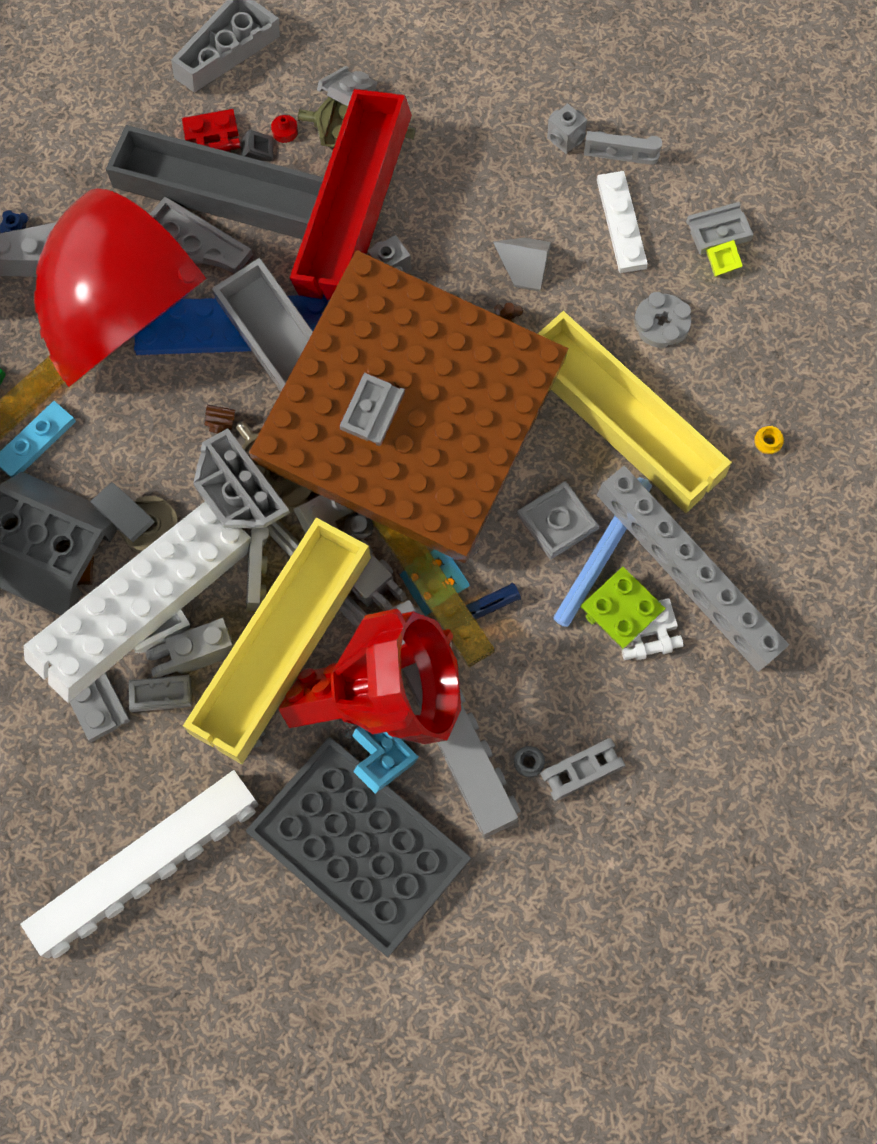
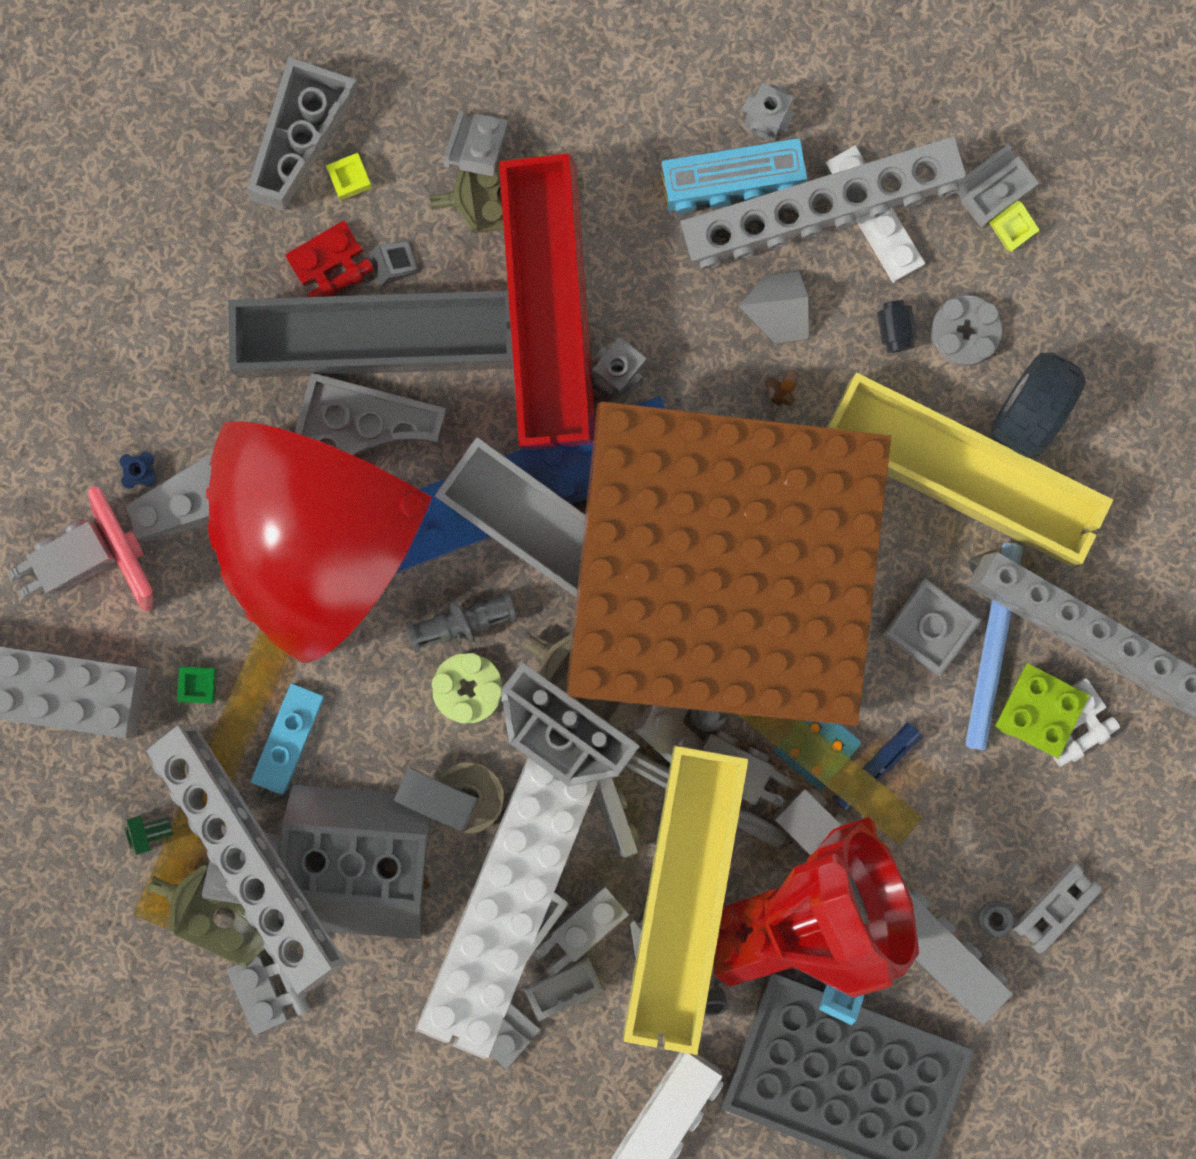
camera: 20 degrees left, 15 degrees up
(169, 440) = (487, 692): none -> yellowish green plate
(197, 396) = (461, 621): none -> dark grey piece
(219, 418) = (497, 641): reddish brown plate -> none
(249, 83) = (349, 176): none -> neon yellow plate
(270, 751) = (716, 1002): none -> dark grey hinge
(284, 128) = (417, 231): red tile -> none
(372, 409) = (697, 600): light grey plate -> none
(525, 162) = (731, 175): none -> medium azure brick
(593, 186) = (939, 157): none -> light grey brick
(610, 299) = (897, 326): none -> black brick
(623, 147) = (843, 114): light grey plate -> none
(696, 376) = (1038, 405): none -> black wheel
(772, 433) = (1144, 436): yellow plate -> none

